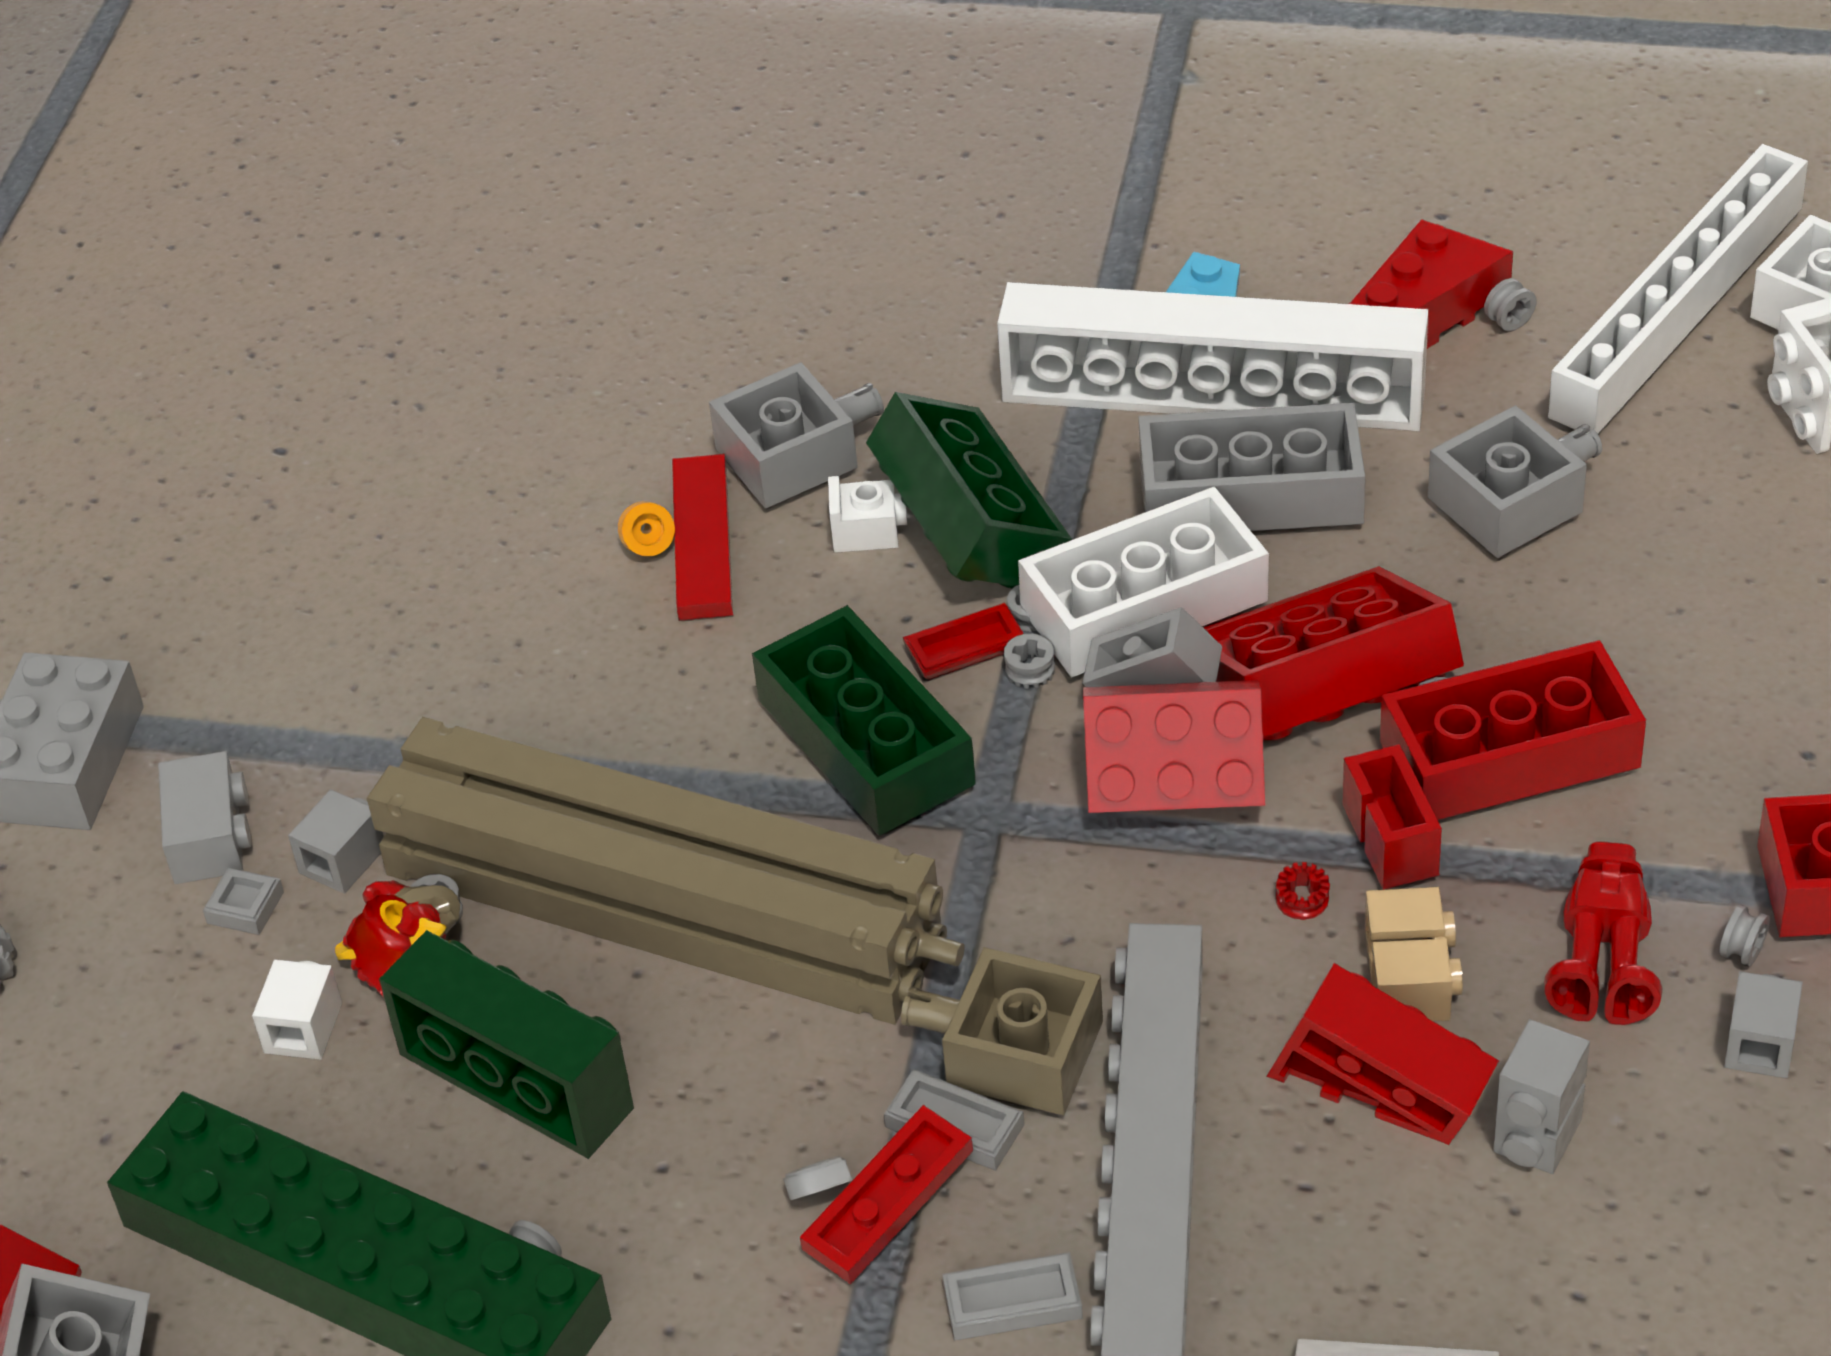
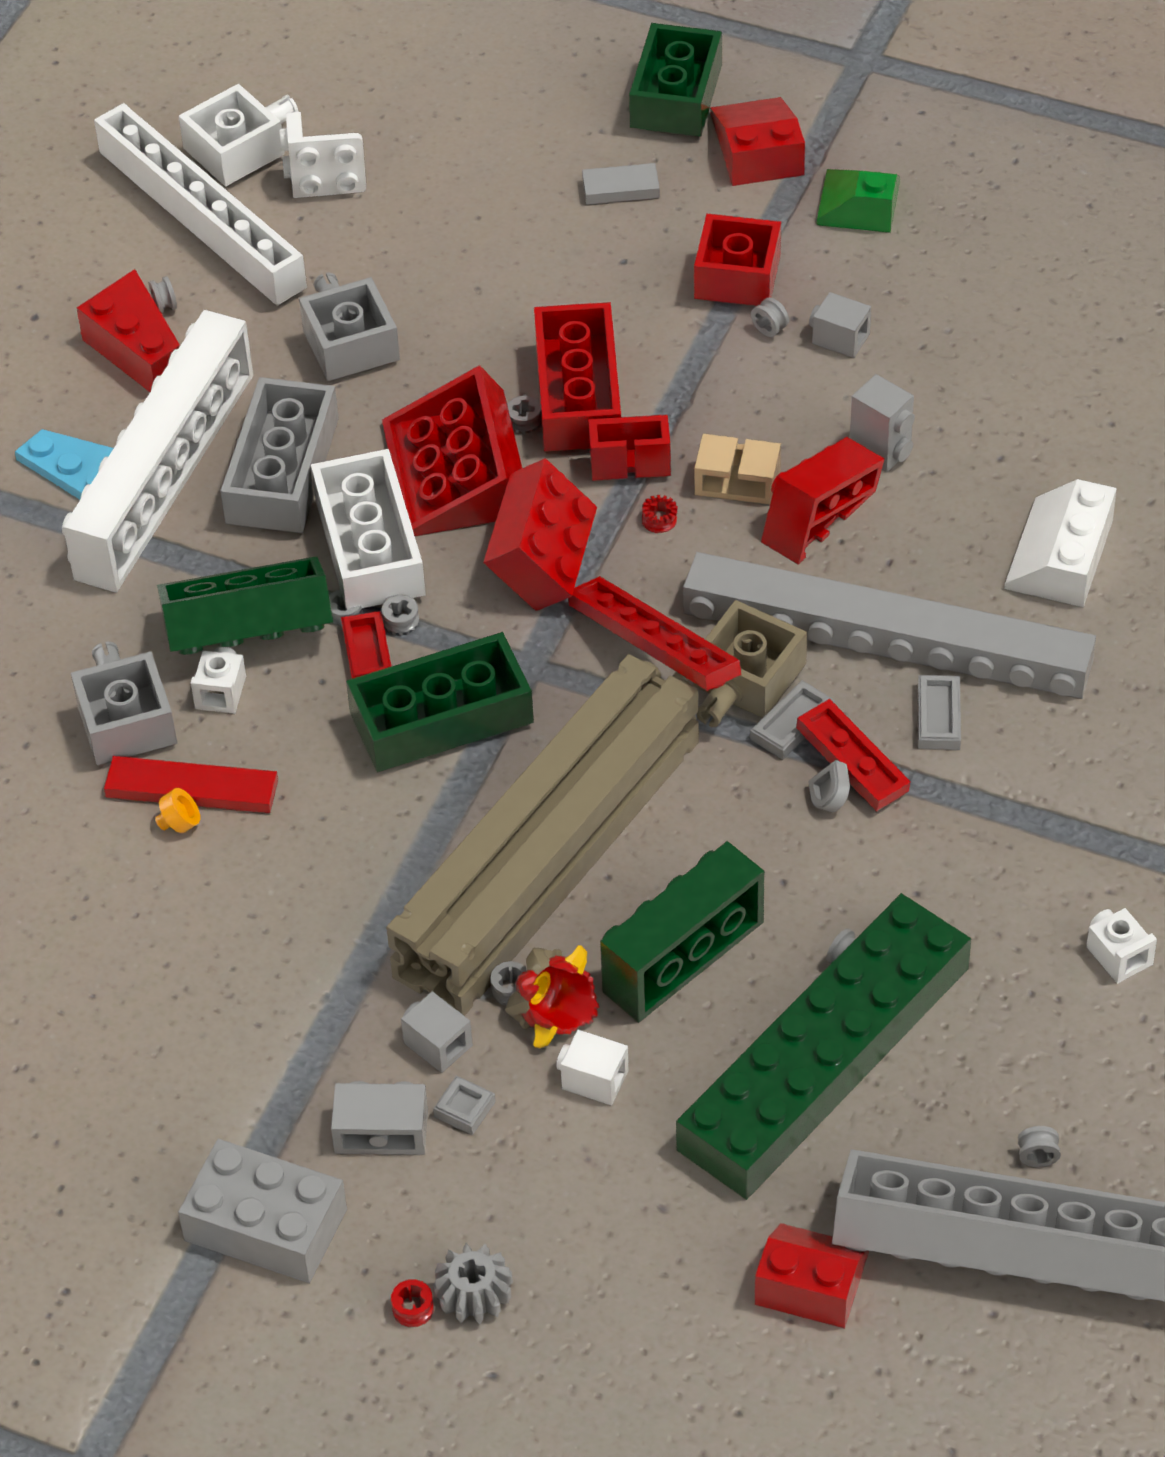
camera: 80 degrees left, 5 degrees up
(1010, 898) = (655, 633): none -> red plate
(1154, 651) = (460, 532): light grey brick -> none
(1610, 907) = (732, 373): red piece -> none

